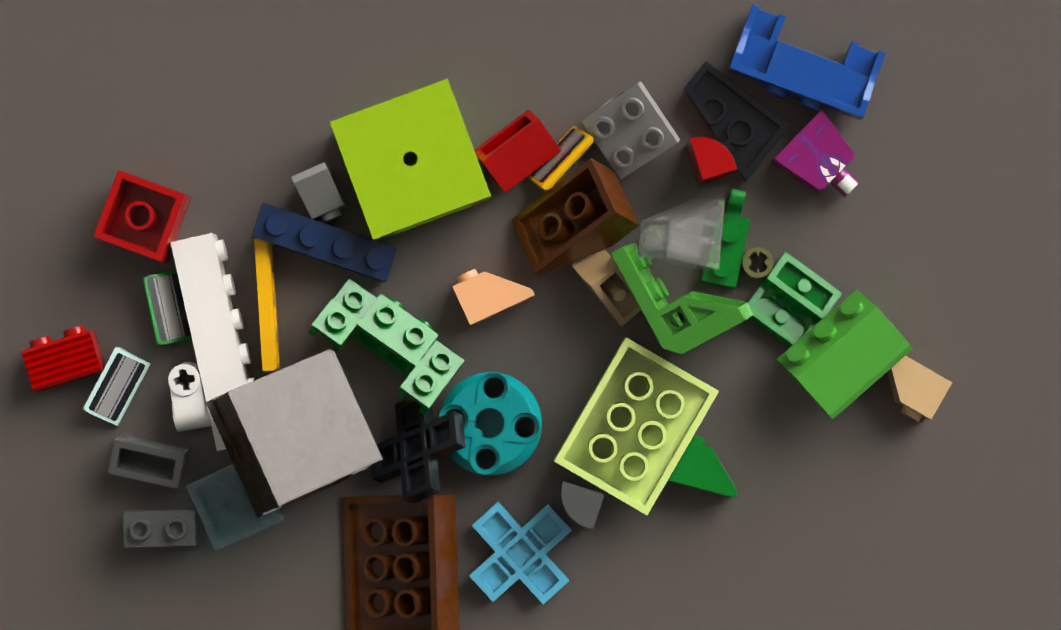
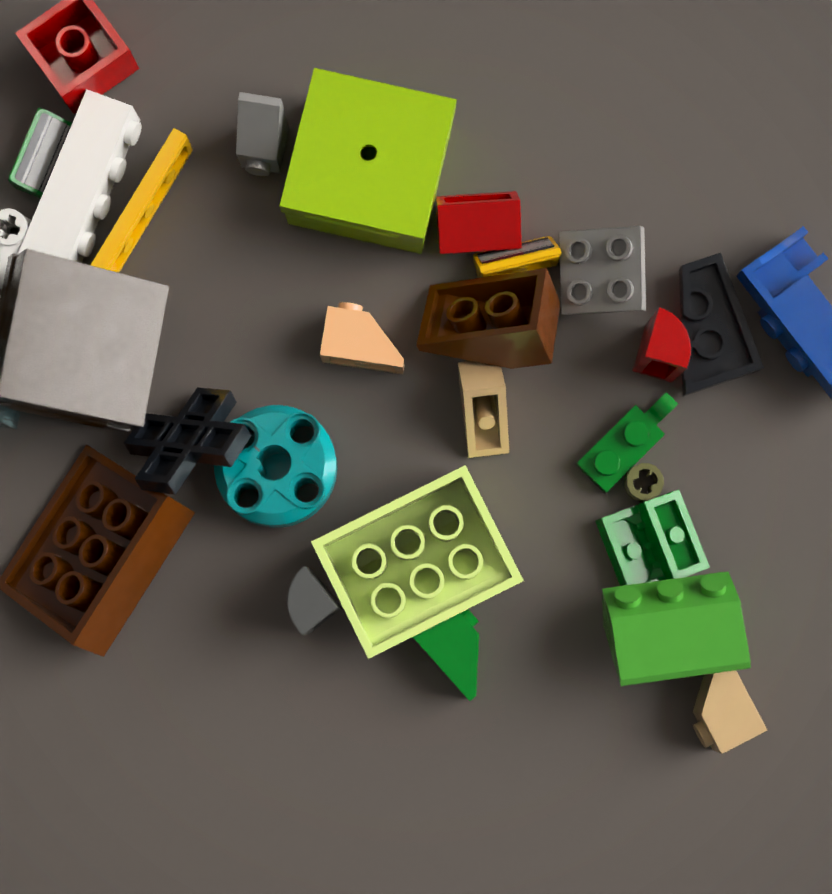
camera: 35 degrees right, 5 degrees down
(323, 242) = (232, 185): dark blue plate -> none
(392, 336) = (237, 317): bracket -> none
(520, 552) = (220, 613): medium azure plate -> none
(685, 234) = (589, 405): clear slope -> none
(703, 313) = (556, 496): bright green bracket -> none
(818, 157) = (771, 417): magenta torso -> none

